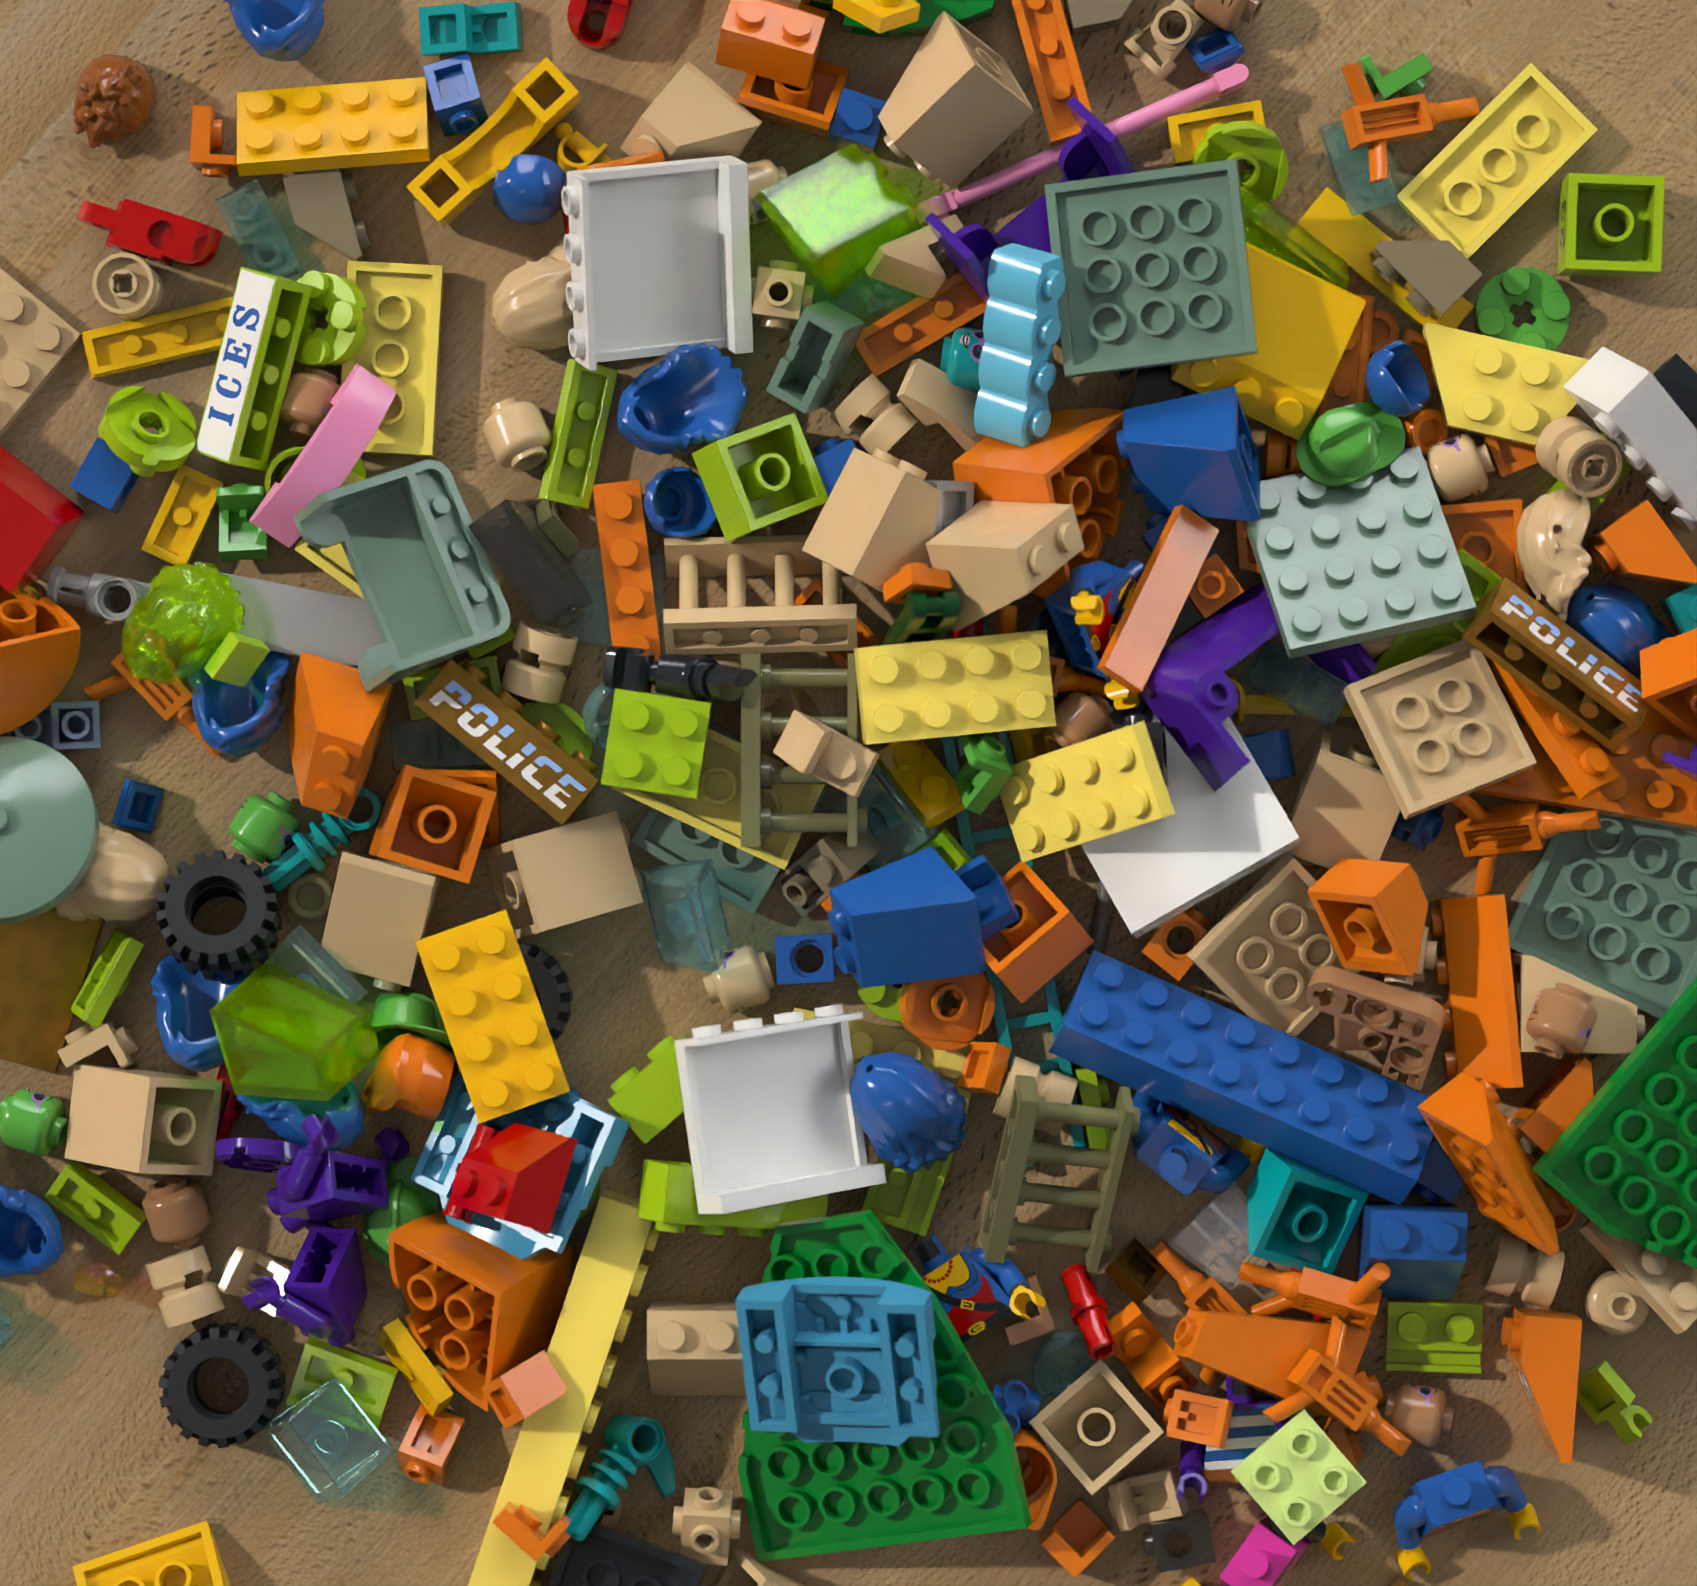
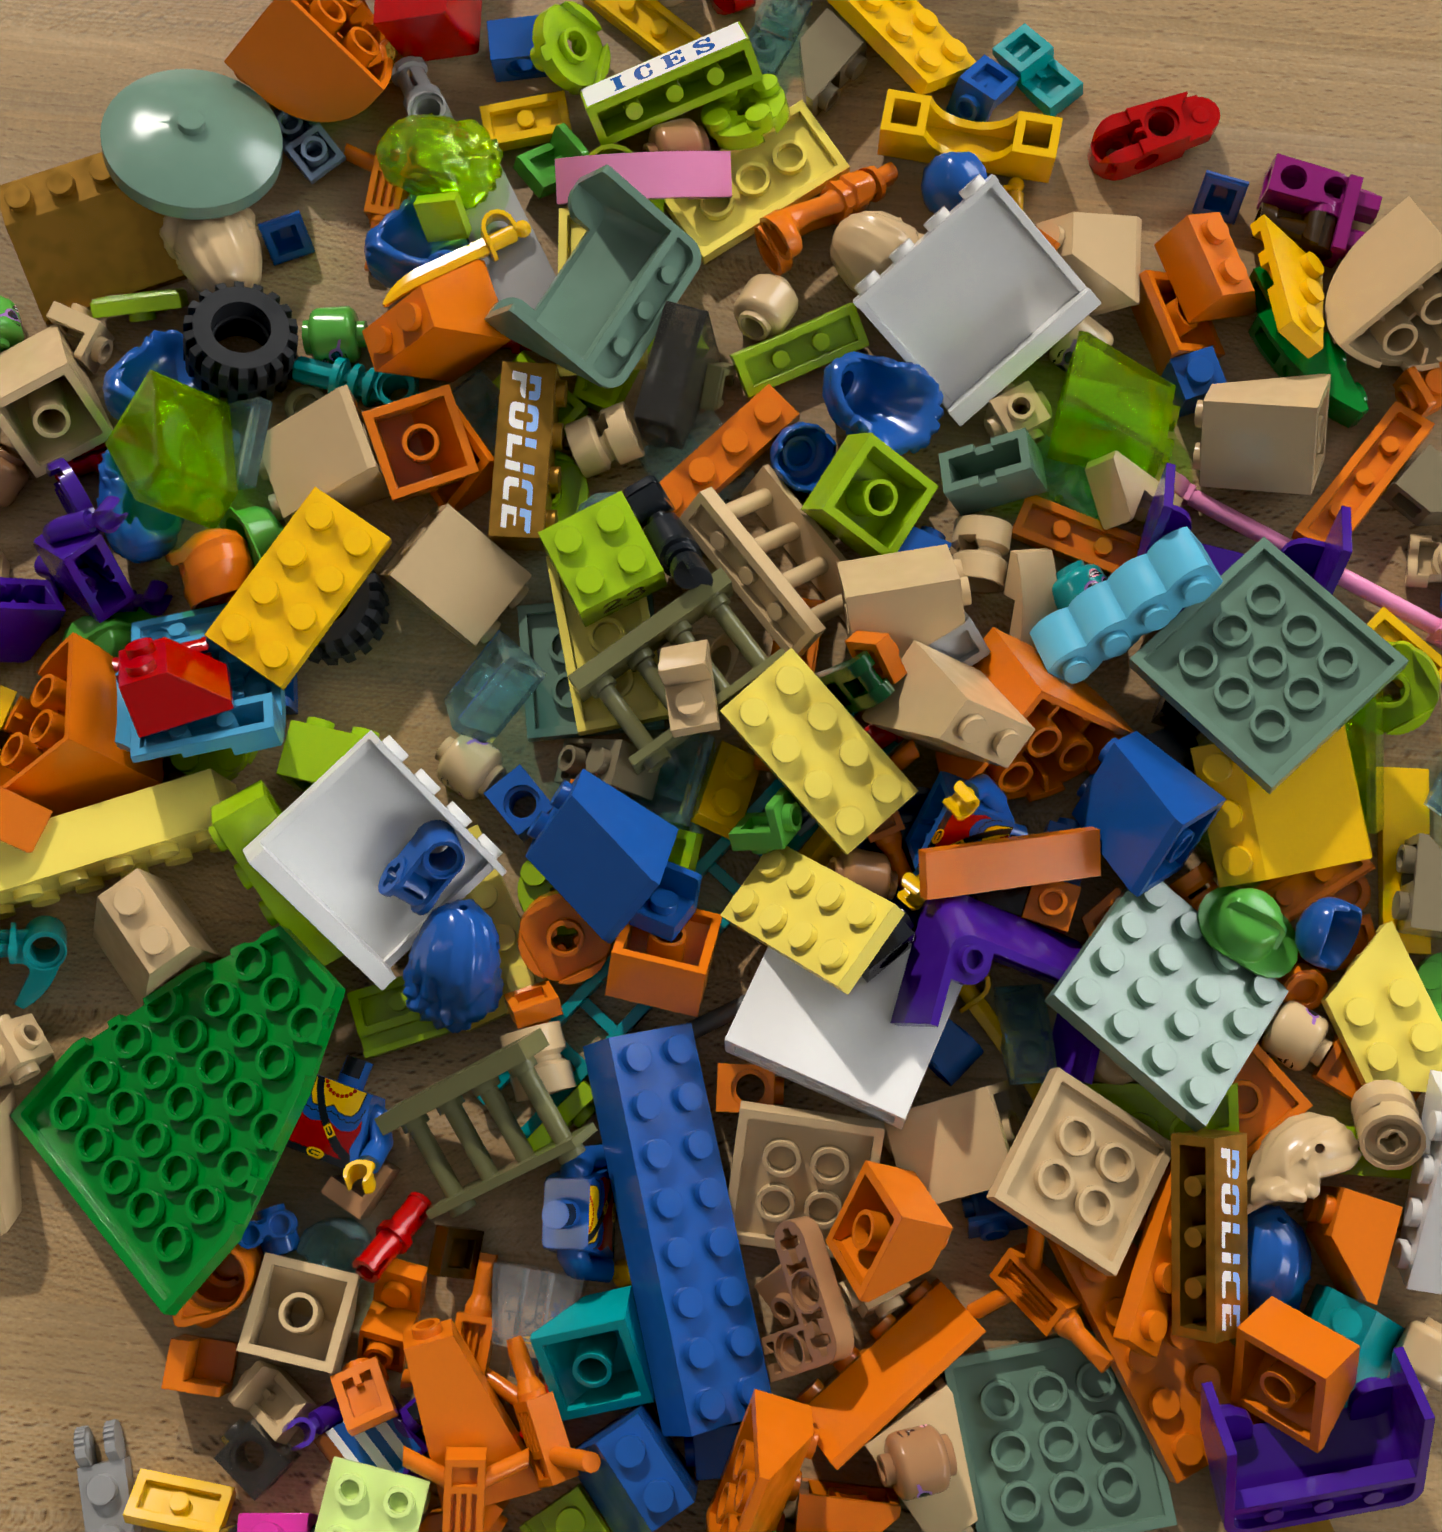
camera: 60 degrees right, 10 degrees down
(286, 669) = (478, 249): none -> yellow sword
(470, 292) = (781, 230): none -> orange piece
(812, 1073) = (420, 875): none -> blue piece
(839, 1359) = (200, 1050): dark azure slope -> none

